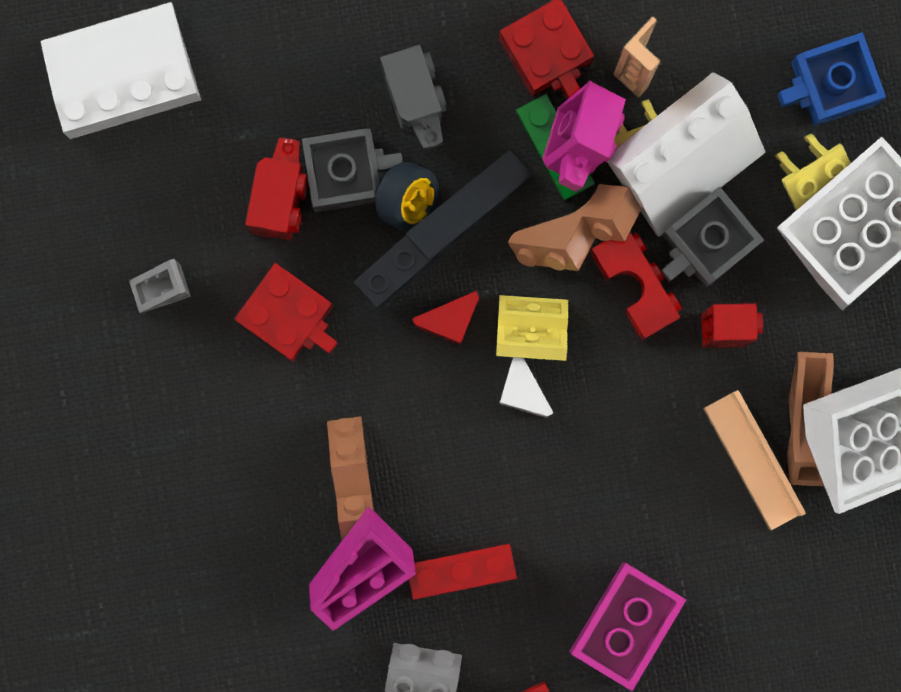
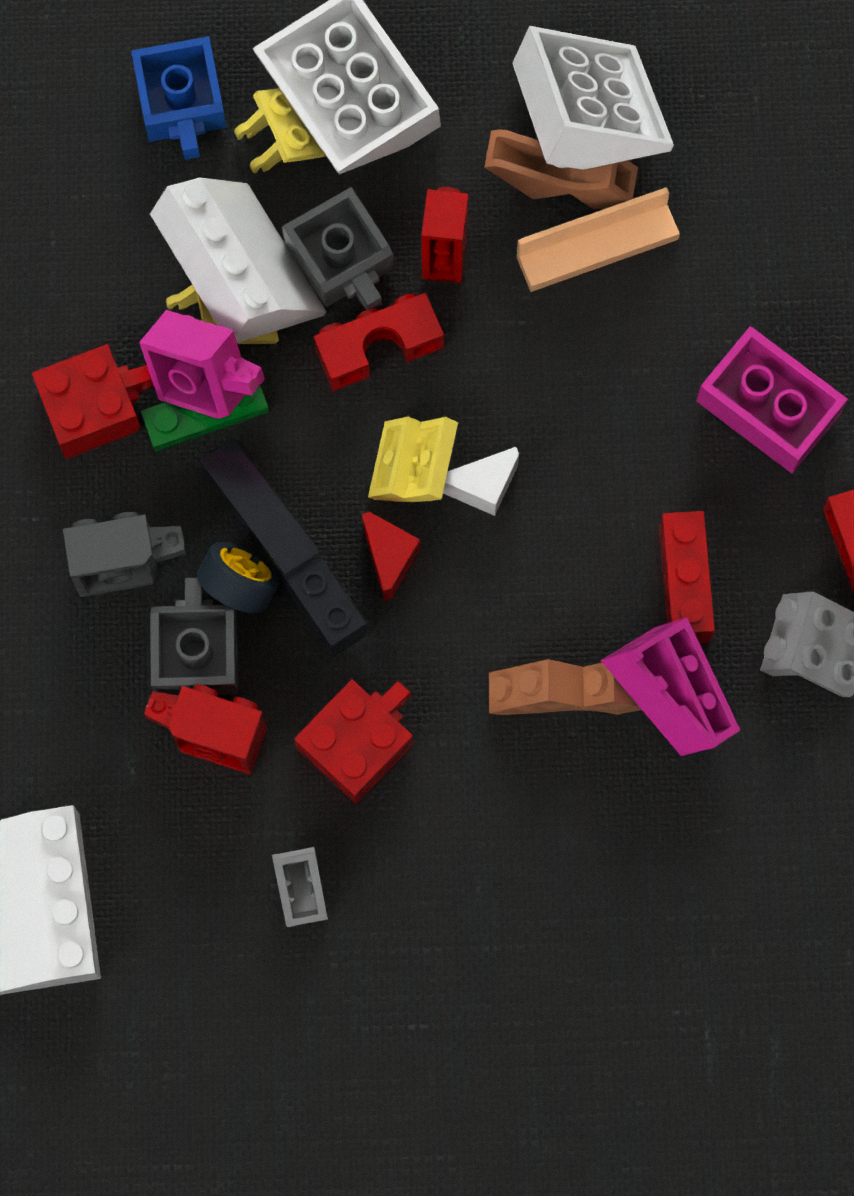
camera: 80 degrees left, 10 degrees down
(567, 240) = (317, 405): nougat arch -> none
(636, 62) = (125, 287): light nougat panel -> none

